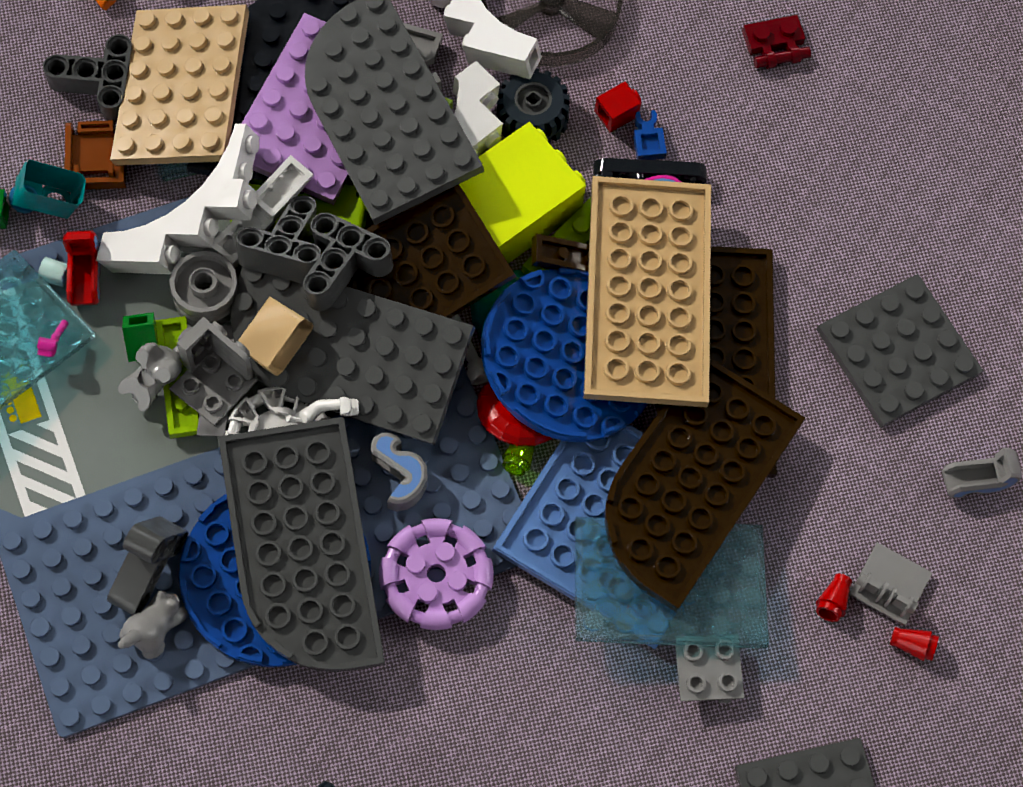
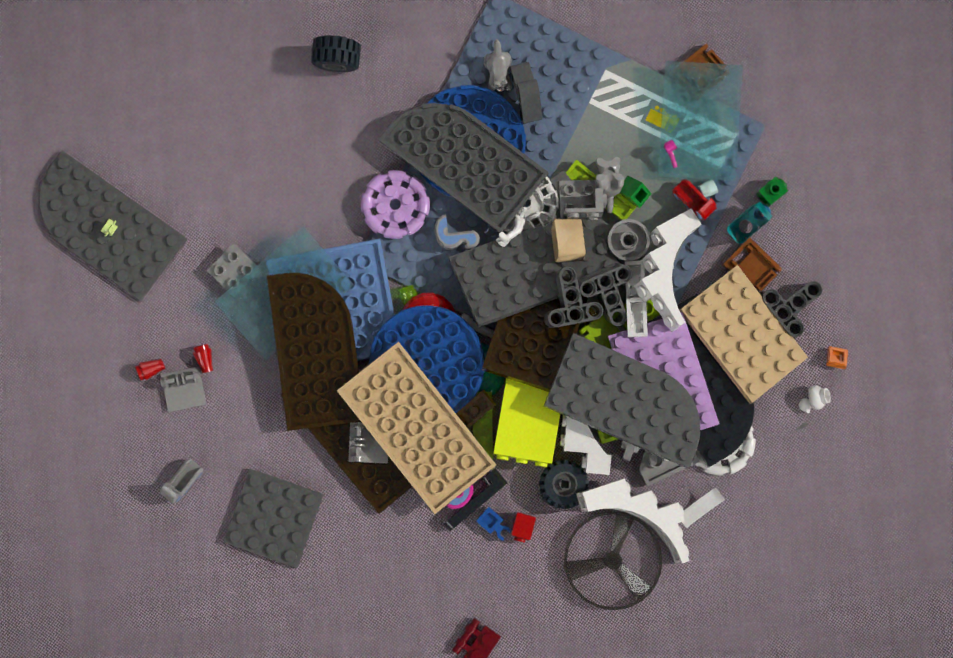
camera: 140 degrees right, 15 degrees up
(728, 328) = (364, 446): none -> light grey hinge

